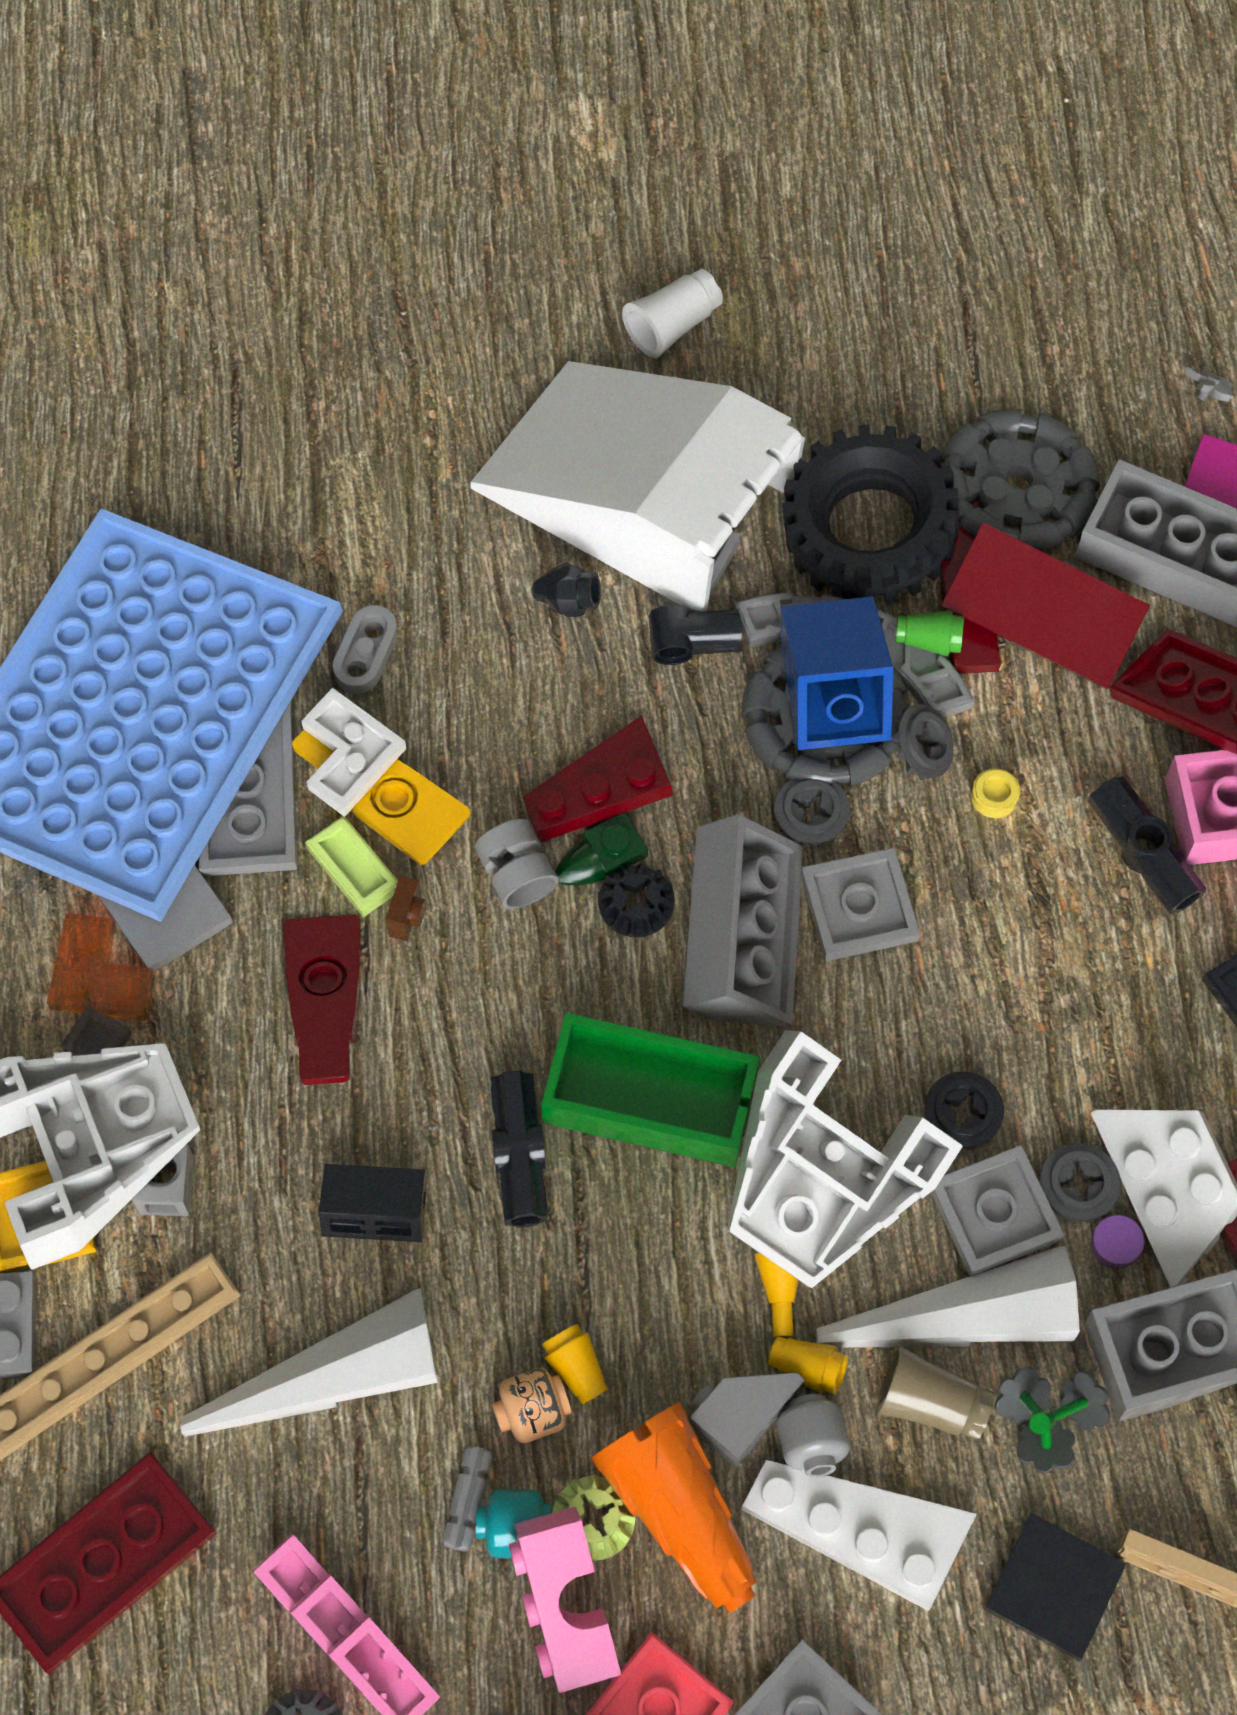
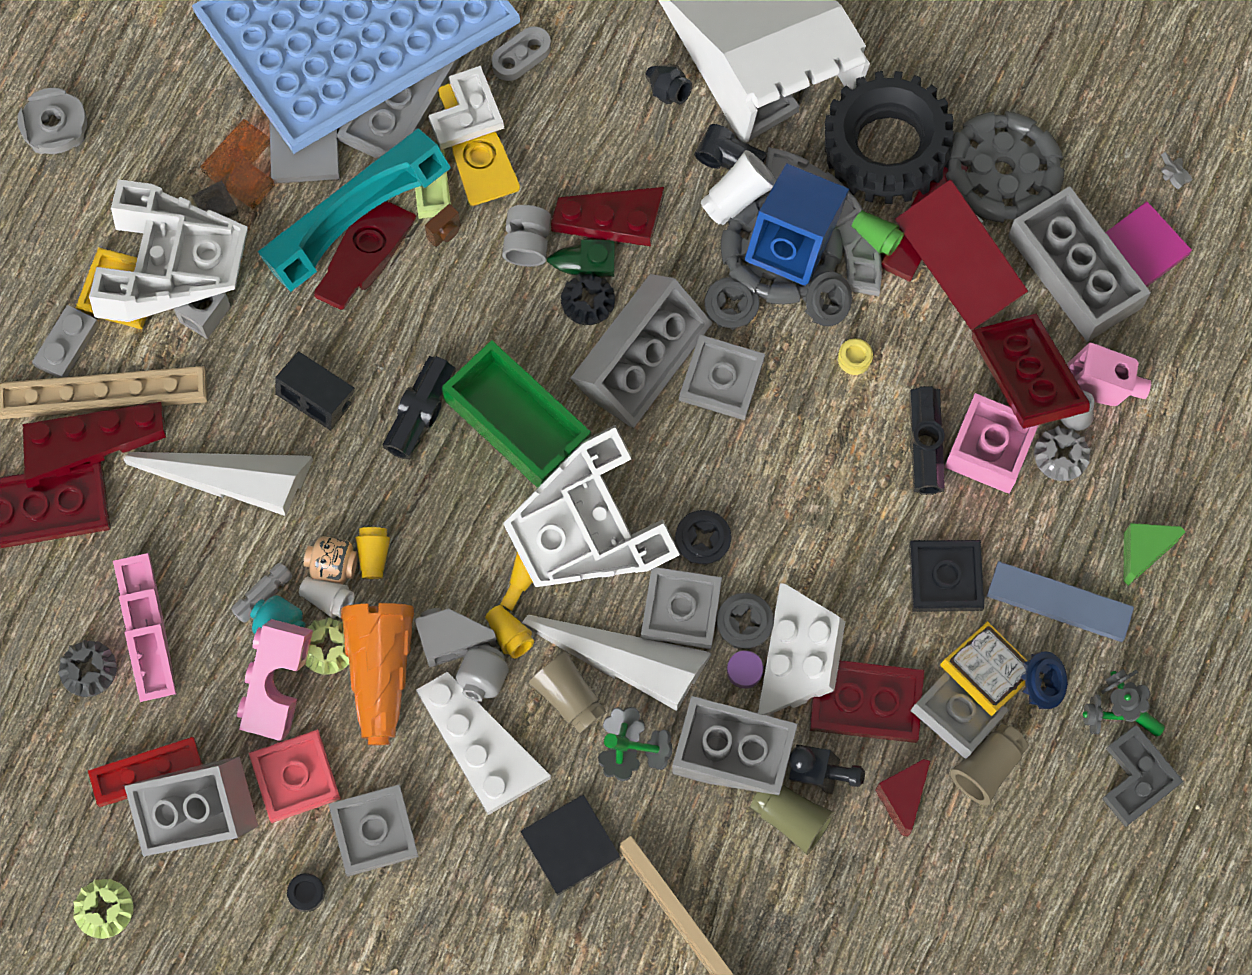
camera: 30 degrees right, 5 degrees up
(100, 1446) = (70, 441): none -> dark red wing
(242, 1039) = (299, 248): none -> teal arch
(555, 1454) = (326, 595): none -> white cone
(737, 669) = (738, 188): none -> white plant

